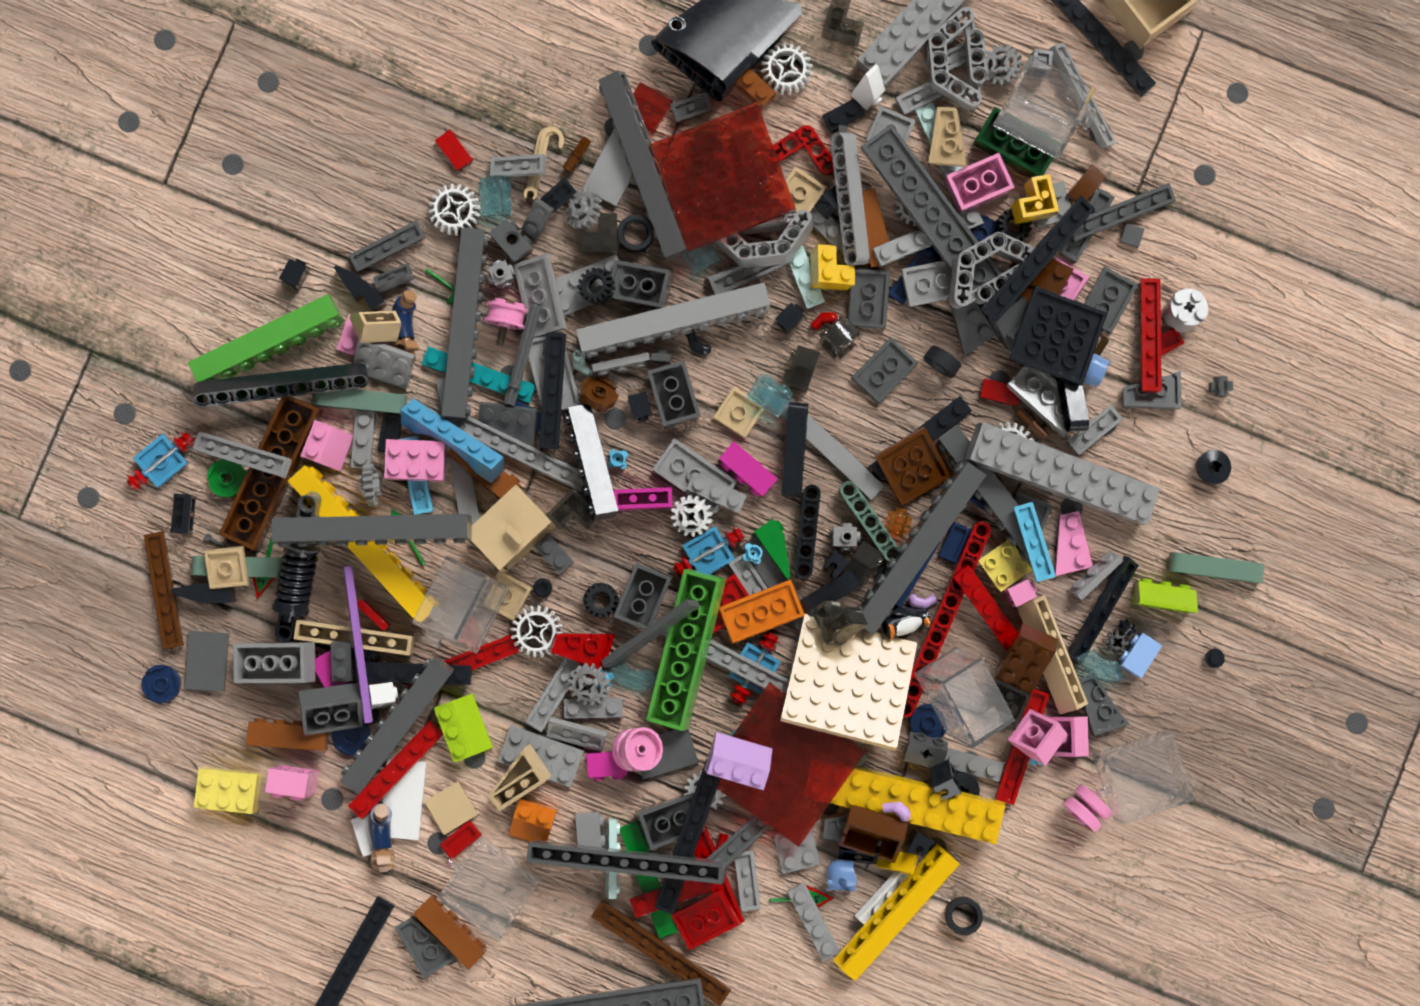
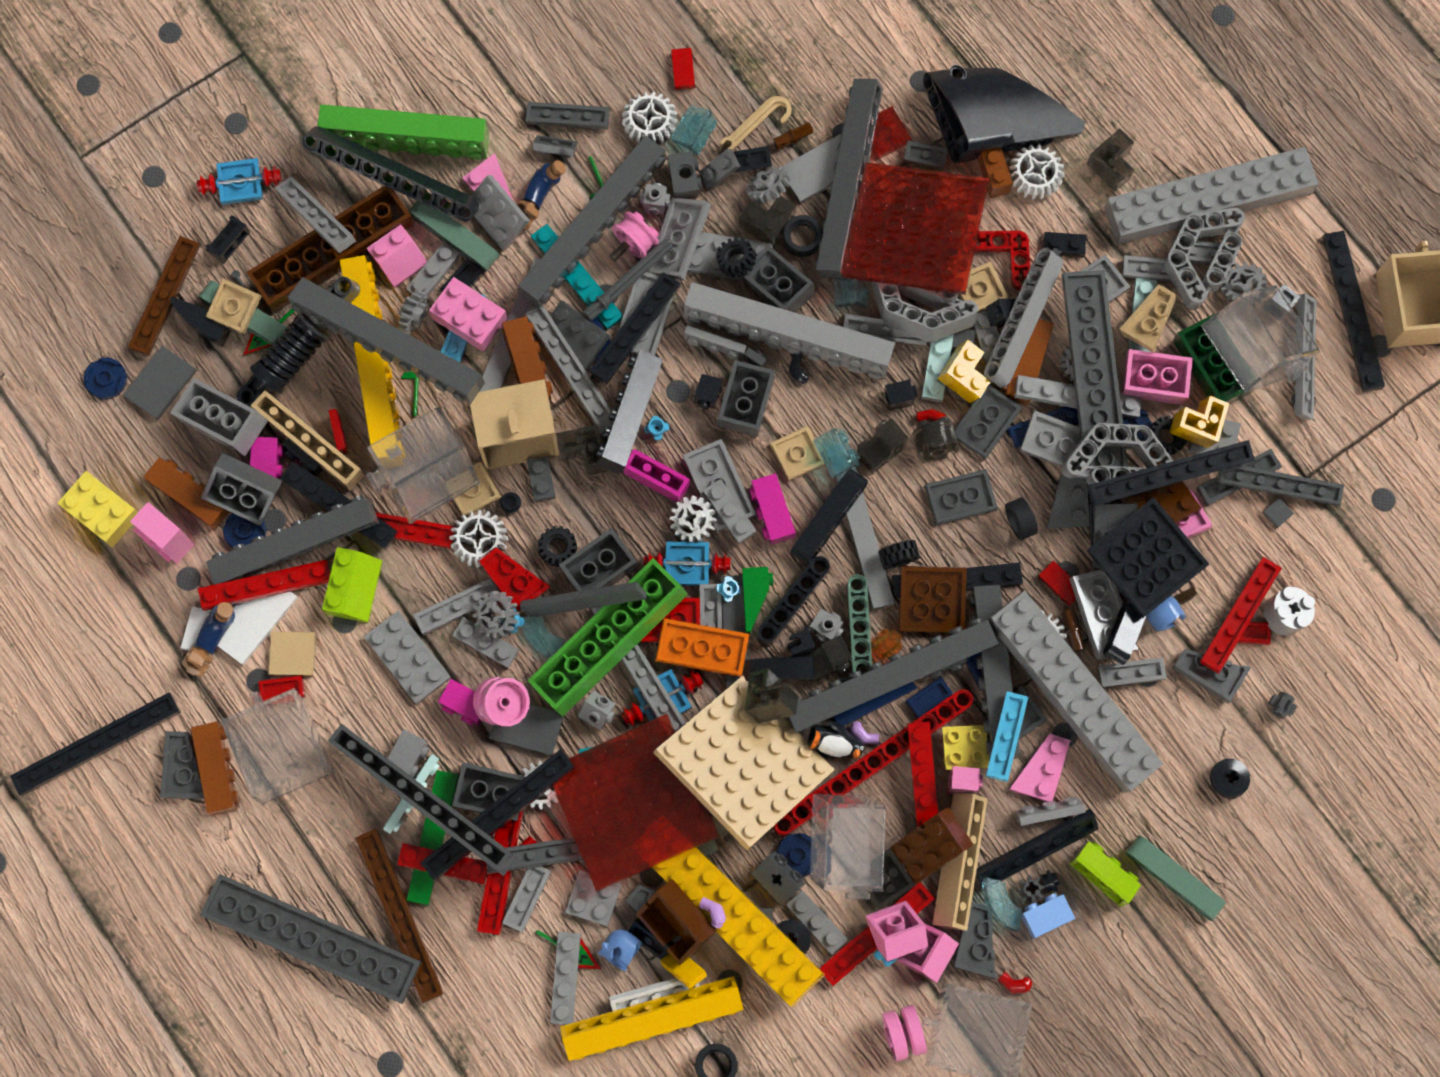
camera: 35 degrees right, 10 degrees down
(216, 479) = (282, 221): green plate -> none
(294, 273) = (468, 90): black brick -> none
(342, 660) = (281, 452): dark grey plate -> none
(357, 644) = (305, 443): medium lavender tile -> none
(360, 289) = (519, 138): black slope -> none
(376, 326) = (511, 174): tan slope -> none
(382, 695) = (295, 506): white brick -> none
(479, 456) = (528, 342): dark azure arch -> none
(518, 165) = (733, 113): light grey plate -> none
(521, 778) = (373, 662): tan wedge -> none
(532, 820) = (360, 711): orange slope -> none
(576, 734) = (454, 656): light grey plate -> none
(580, 364) = (676, 321): light aqua arm -> none
(589, 393) = (668, 352): reddish brown plate -> none
(706, 919) = (463, 908): red plate -> none
(712, 708) = (597, 710): none -> light grey brick
(739, 761) = (590, 767): lavender slope -> none
(812, 241) = (962, 336): none -> dark grey tile
(866, 447) = (899, 554): none -> black tyre
(869, 89) = (1104, 231): white slope -> none
(918, 841) = (719, 961): black hinge -> none
(945, 777) = (782, 910): black hinge -> none
(1086, 184) = (1263, 438): reddish brown slope -> none
(1111, 295) = (1227, 557): dark grey tile -> none
(1147, 720) = (1015, 986): none -> red arm
(1214, 658) = (1121, 966): black plate -> none

